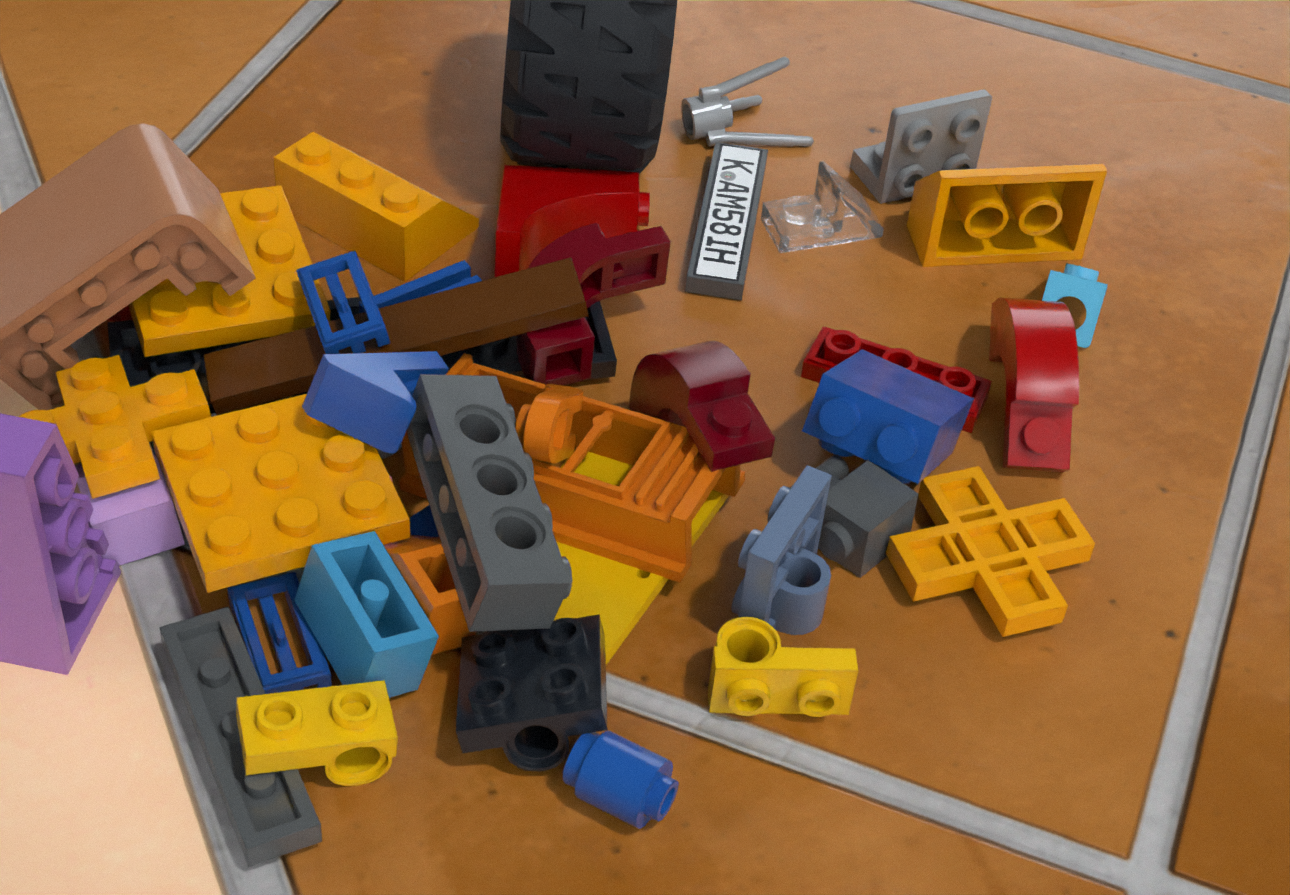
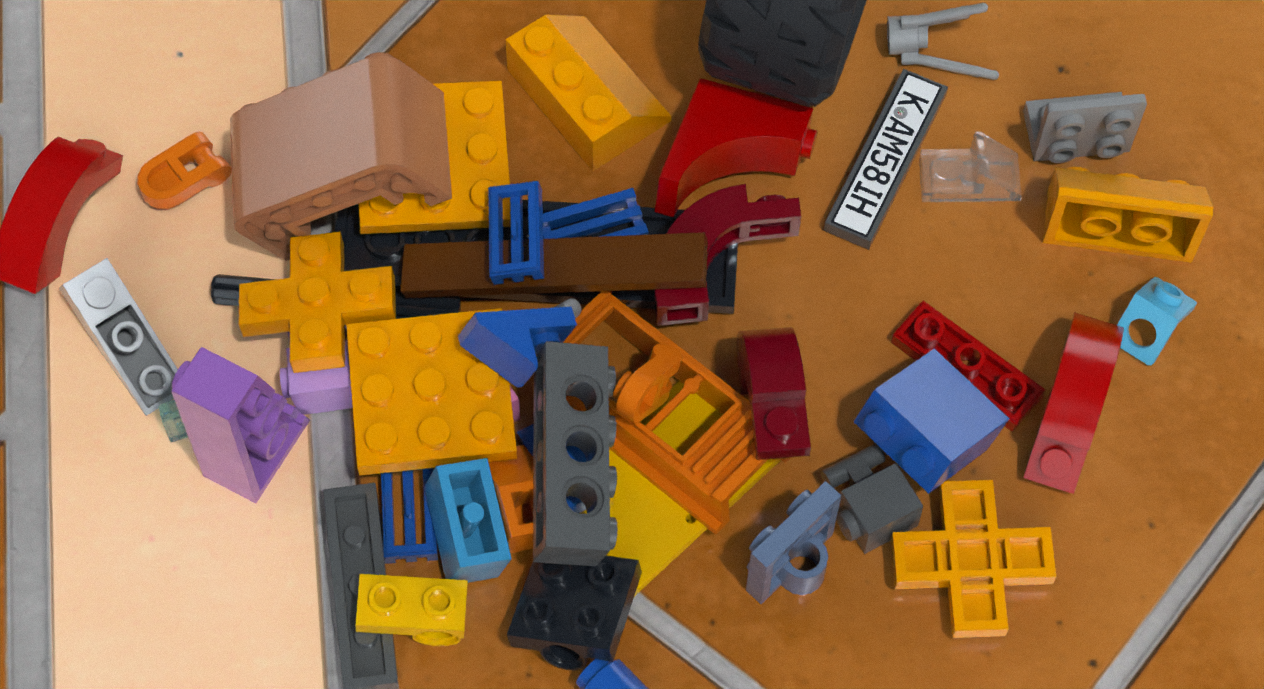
camera: 20 degrees right, 20 degrees up
(761, 677) = (779, 647): yellow plate -> none

